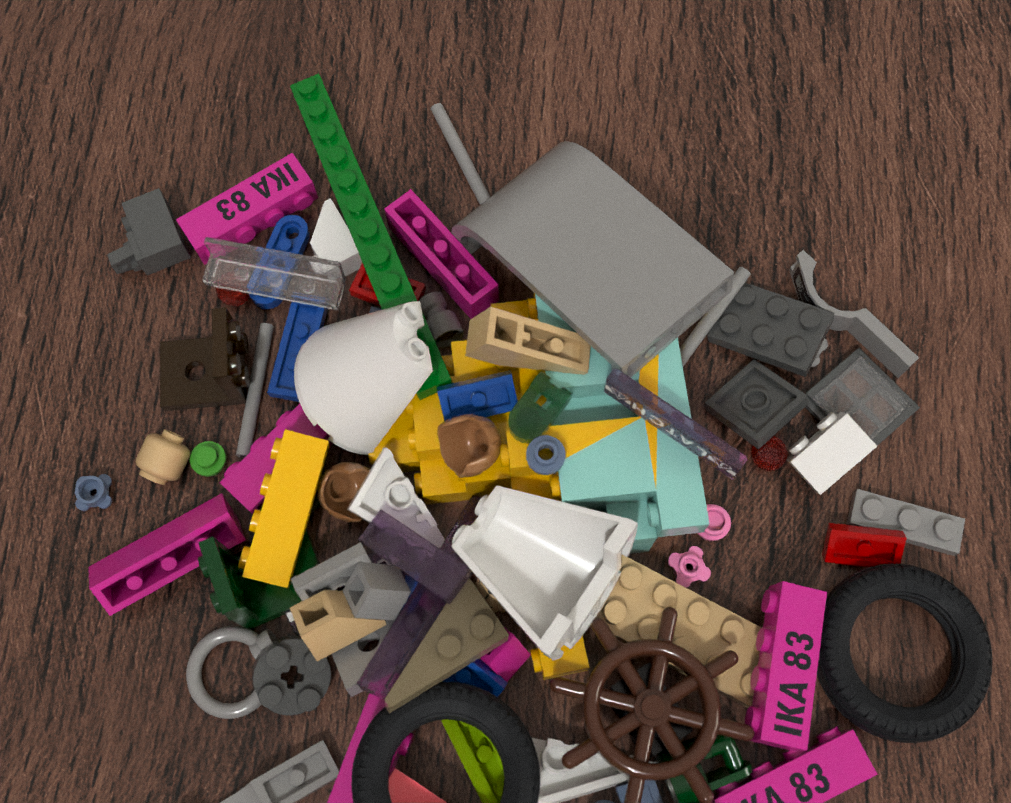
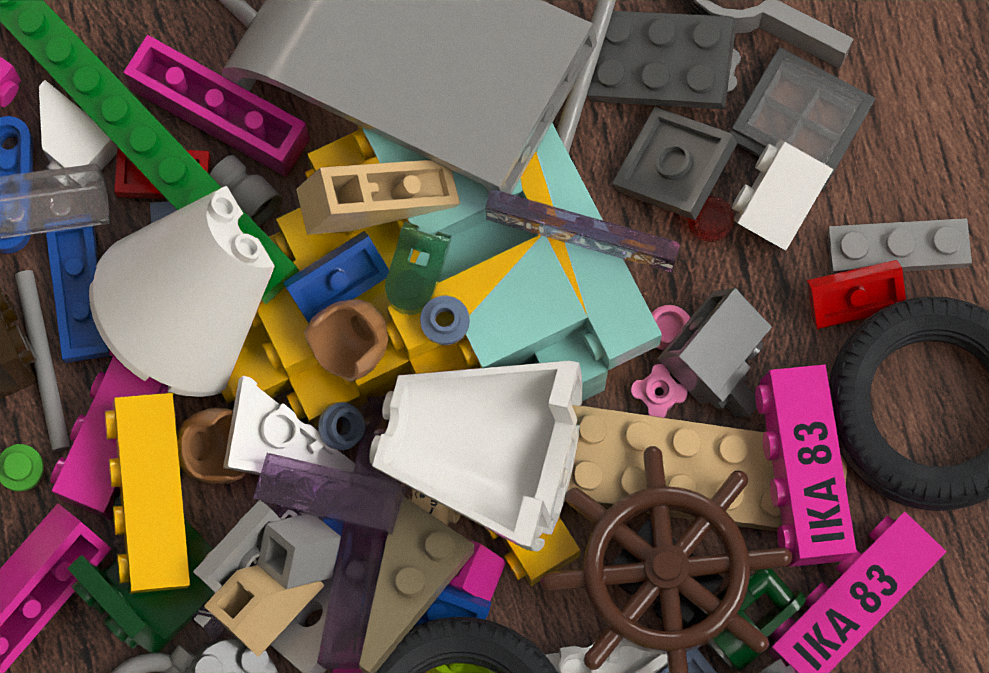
camera: 20 degrees left, 5 degrees up
(452, 514) = (352, 428): none -> sand blue plate
(742, 551) = (714, 349): none -> hinge

